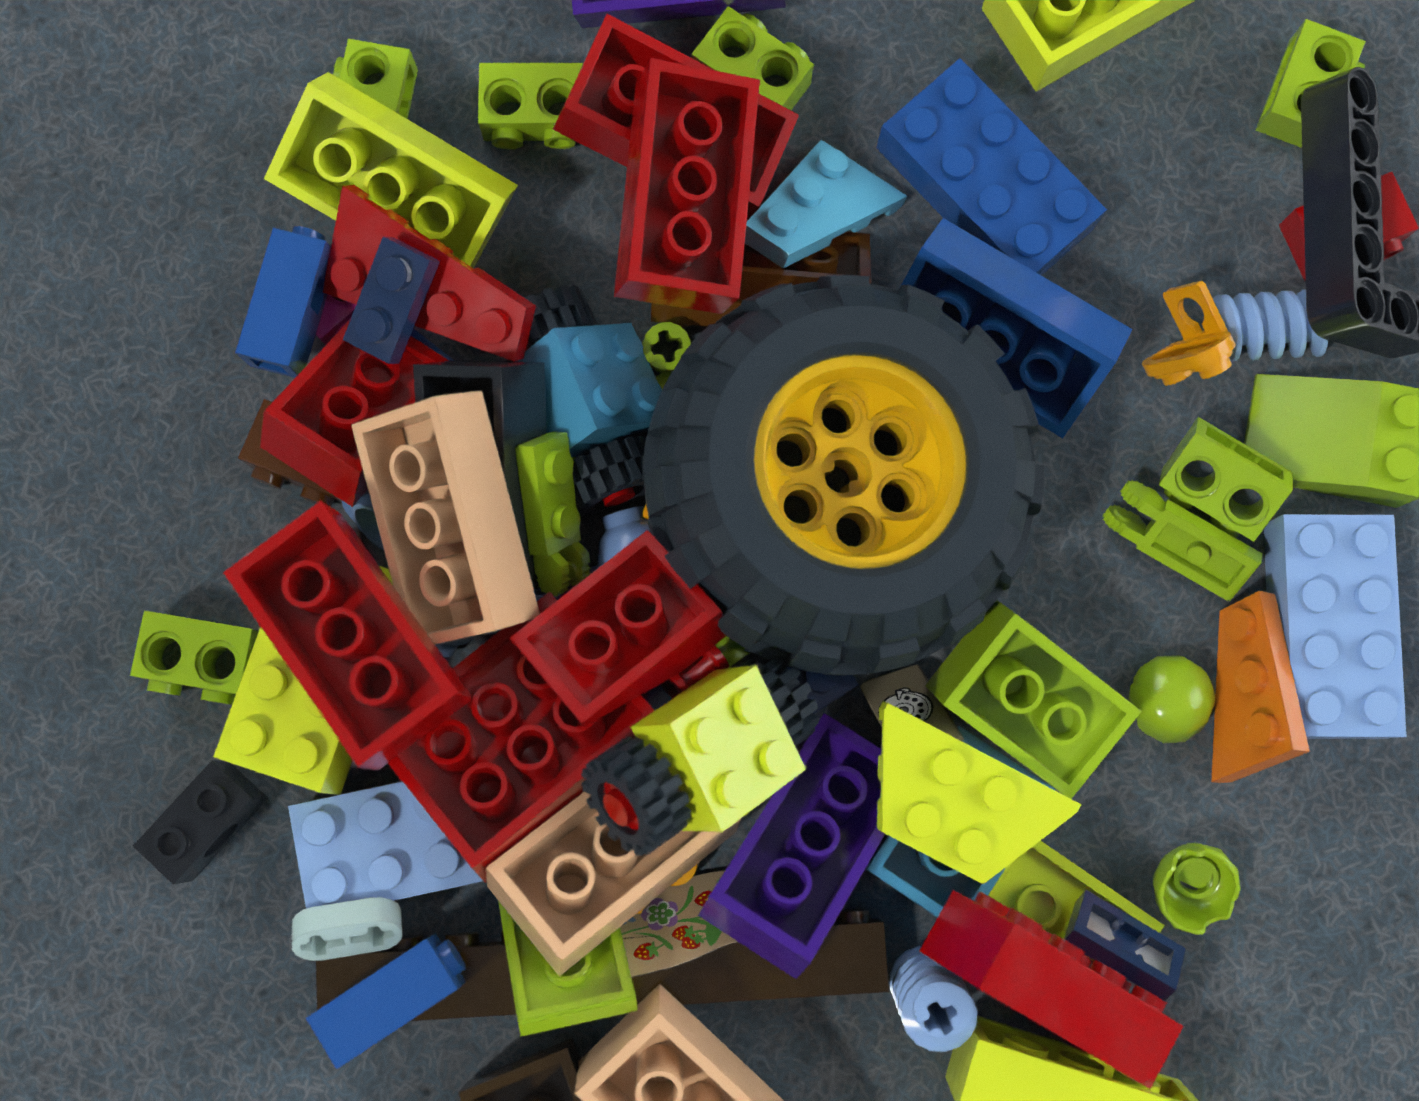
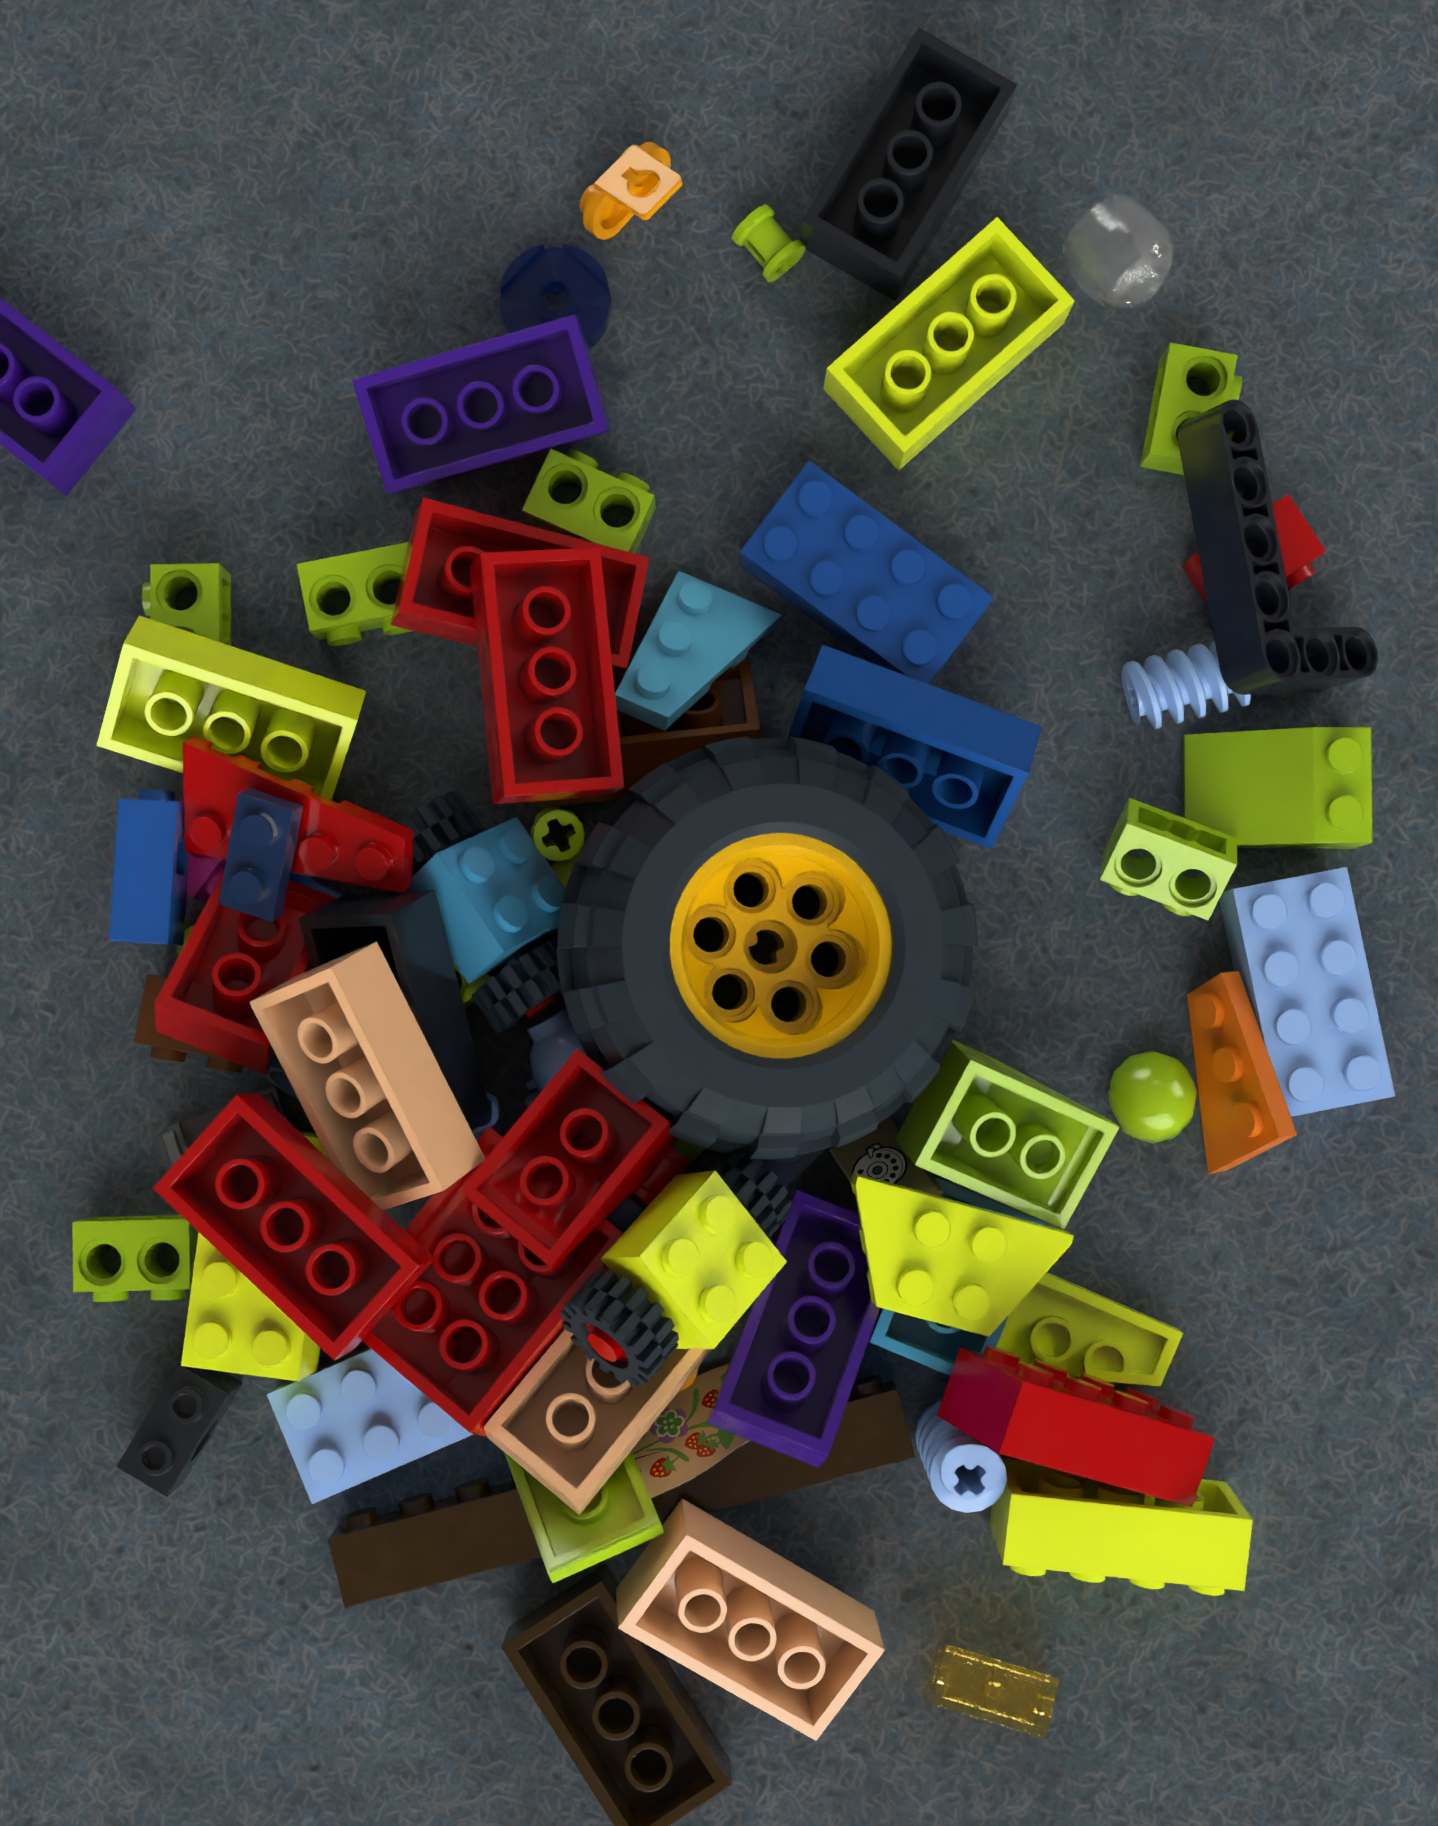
camera: 10 degrees left, 5 degrees up
(346, 928) = (353, 1506): light aqua beam -> none
(388, 999) = (411, 1570): blue brick -> none
(551, 512) = (474, 1042): lime hinge -> none
(1125, 945) = (1144, 1364): dark blue piece -> none
(1183, 541) = (1134, 931): lime hinge -> none
(1201, 350) = (1119, 729): light orange bracket -> none
(1204, 869) = (1211, 1308): lime hair -> none

